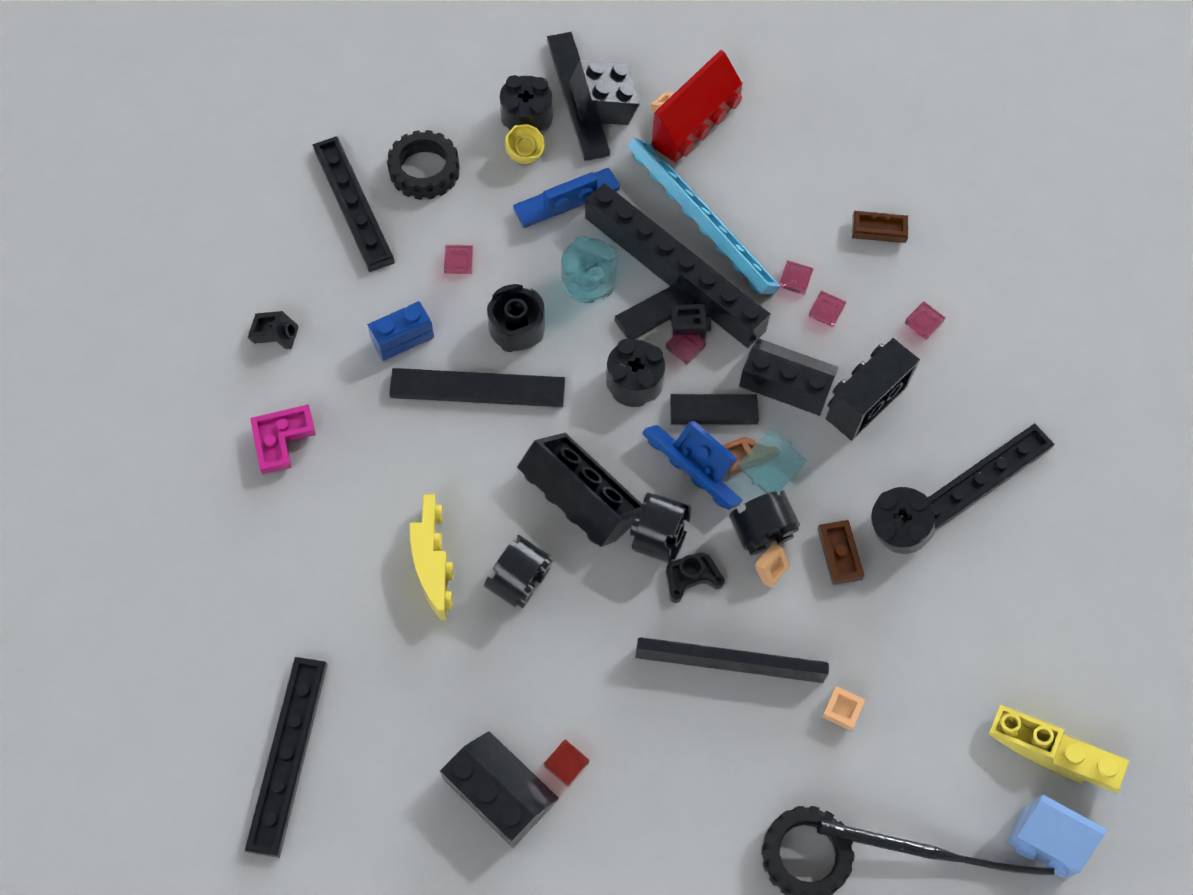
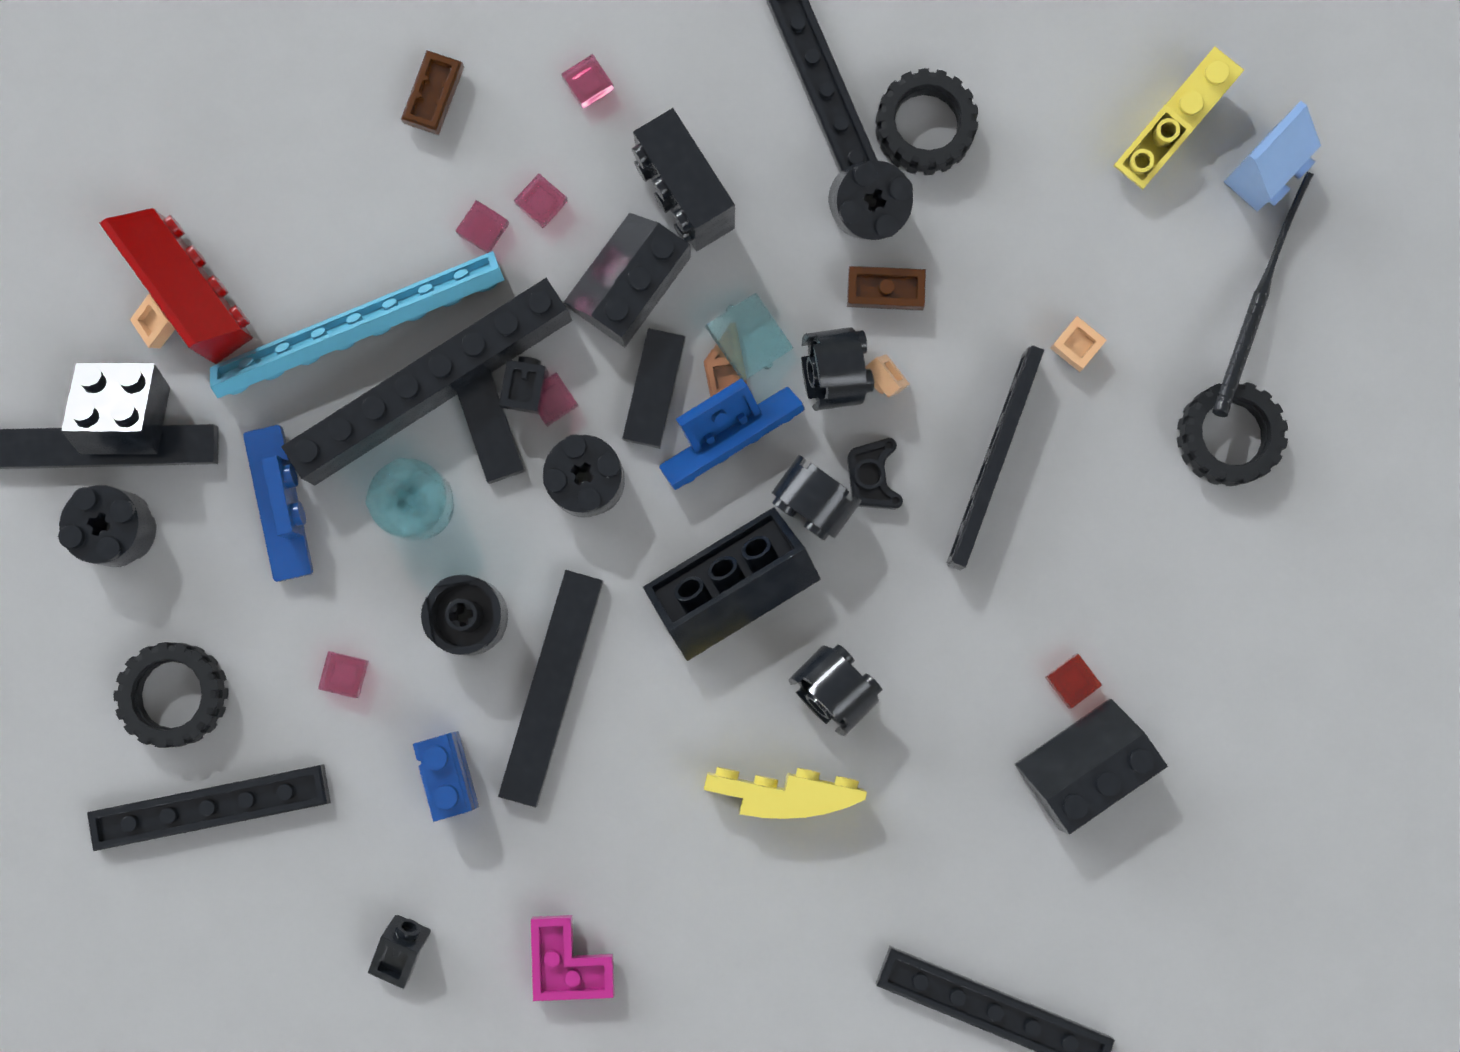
camera: 75 degrees left, 20 degrees up
(524, 144) = (175, 542): light yellow hair -> none
(999, 533) = (933, 85): none -> black tyre

